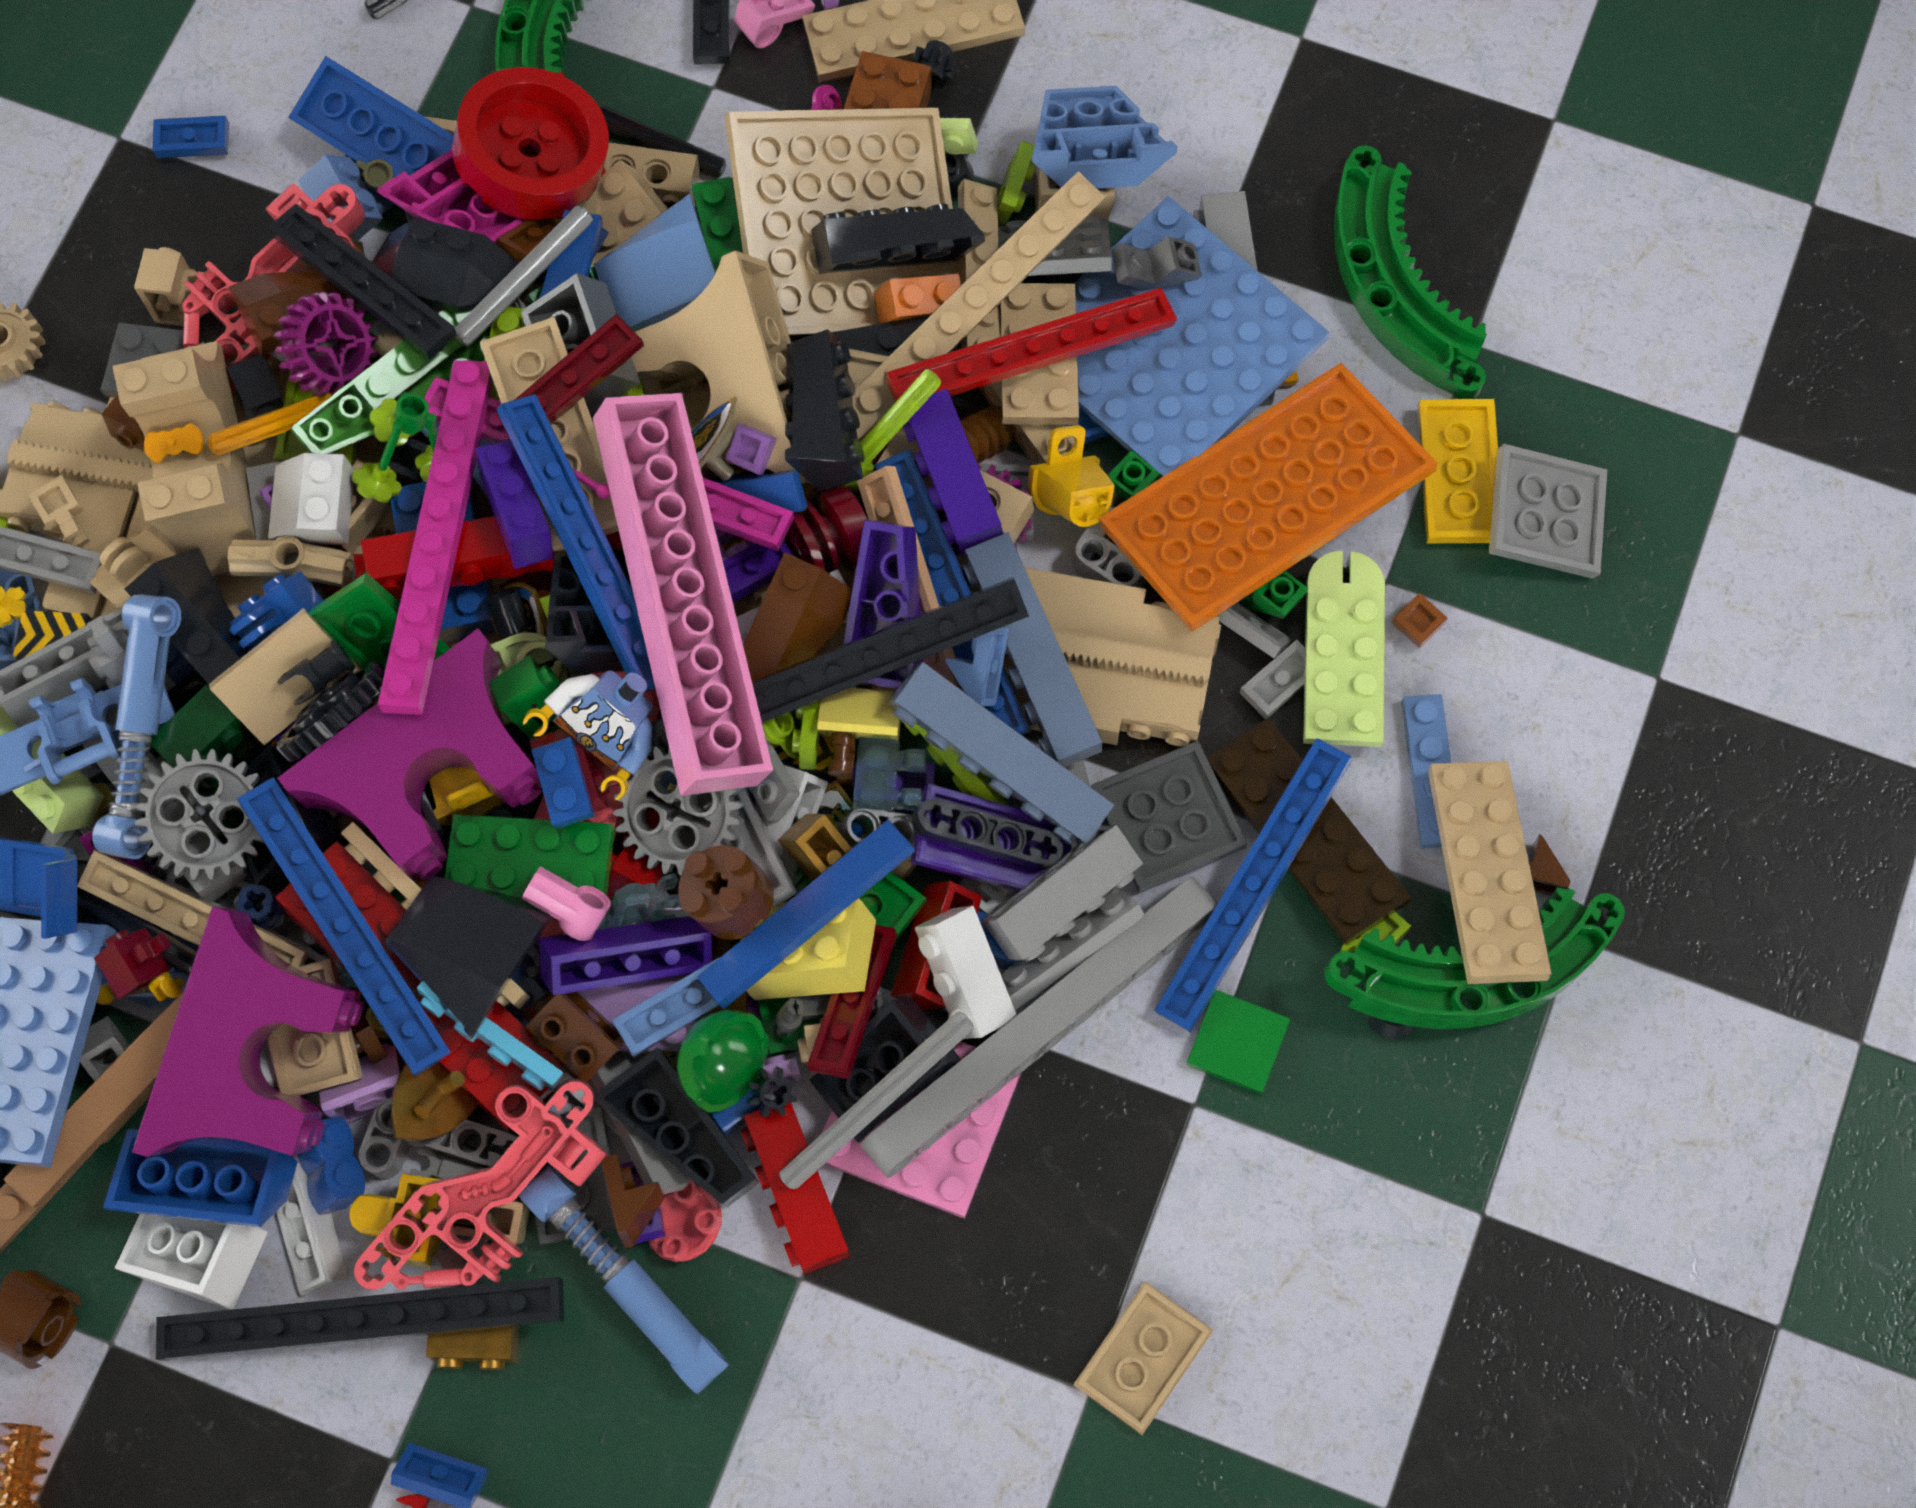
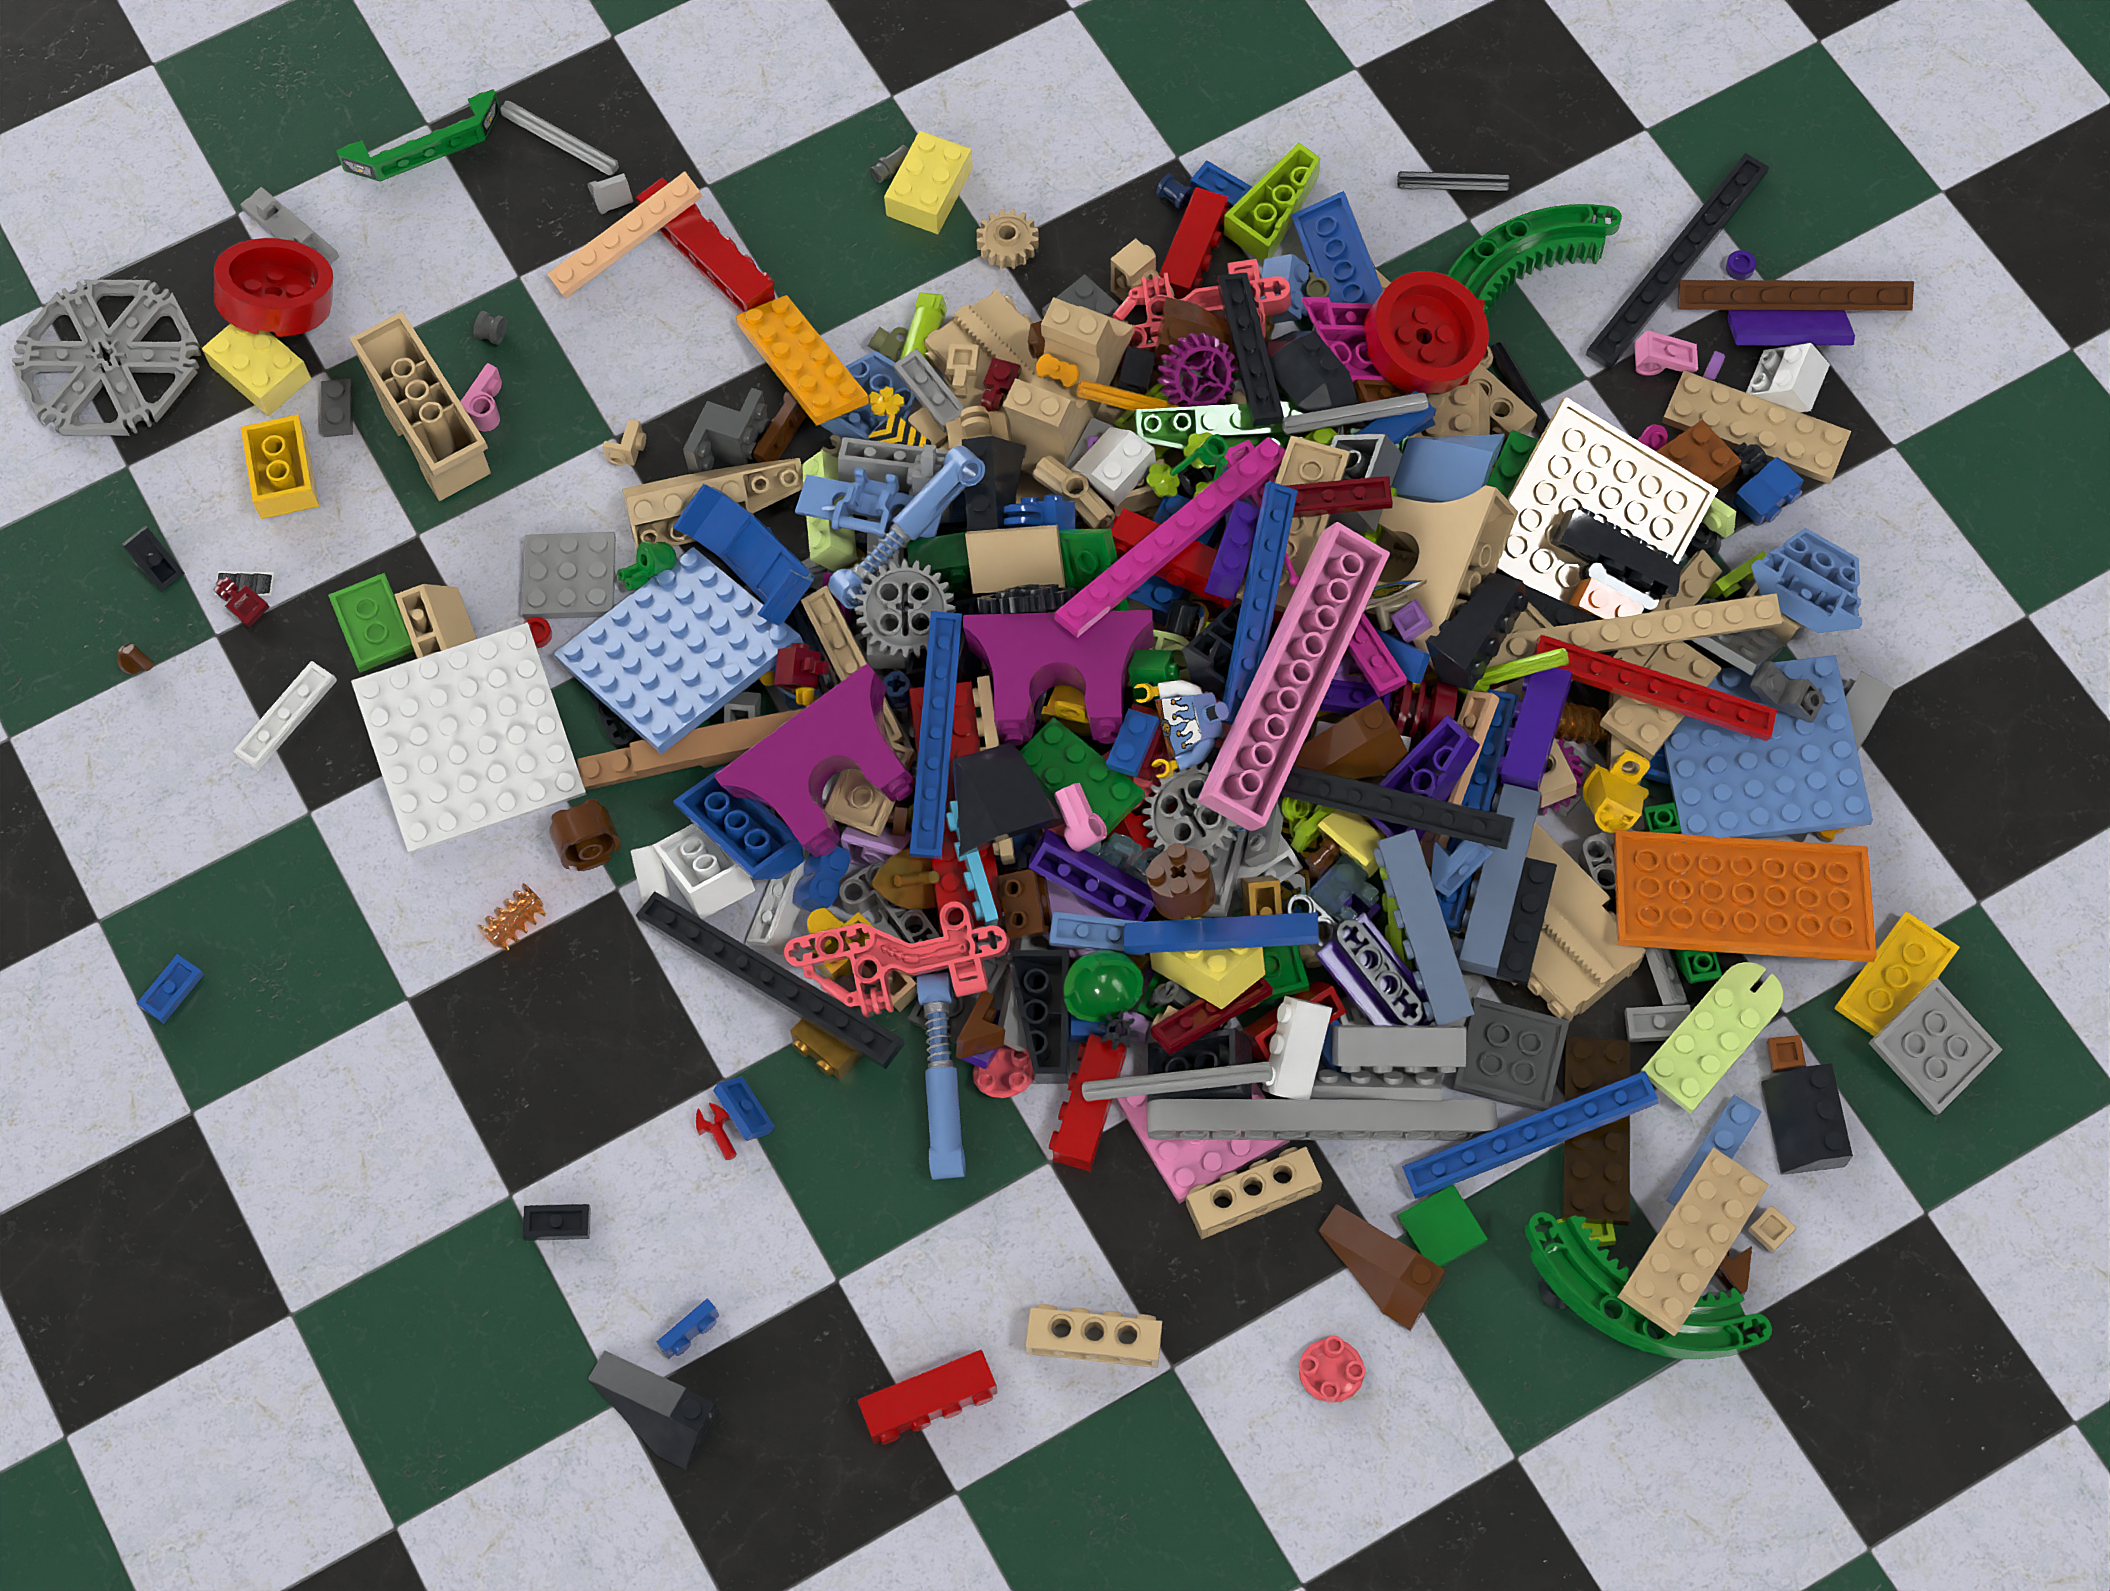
camera: 40 degrees right, 5 degrees down
(112, 494) = (998, 380): none -> dark red plate
(134, 1300) = (649, 872): none -> white sticker
(144, 174) = (1174, 191): none -> dark blue bush
(207, 211) = (1194, 241): none -> red brick
(257, 131) = (1265, 211): none -> lime wedge
(320, 670) = (1040, 569): black piece -> none
(916, 267) = (1619, 584): none -> plate
(976, 80) = (1769, 491): none -> blue brick
(1010, 1210) = (1212, 1219): none -> tan brick
(1052, 1401) = (1077, 1346): none -> tan brick
(1091, 672) = (1526, 921): none -> black plate
(1143, 1358) = (1223, 1372): tan tile -> none
(1223, 1127) = (1388, 1270): none -> reddish brown wedge
(1246, 1270) = (1331, 1370): none -> coral dish
(1412, 322) = (1946, 858): green gear -> none
(1489, 670) = (1807, 1120): none -> black slope
(1540, 801) = (1772, 1229): none -> tan plate

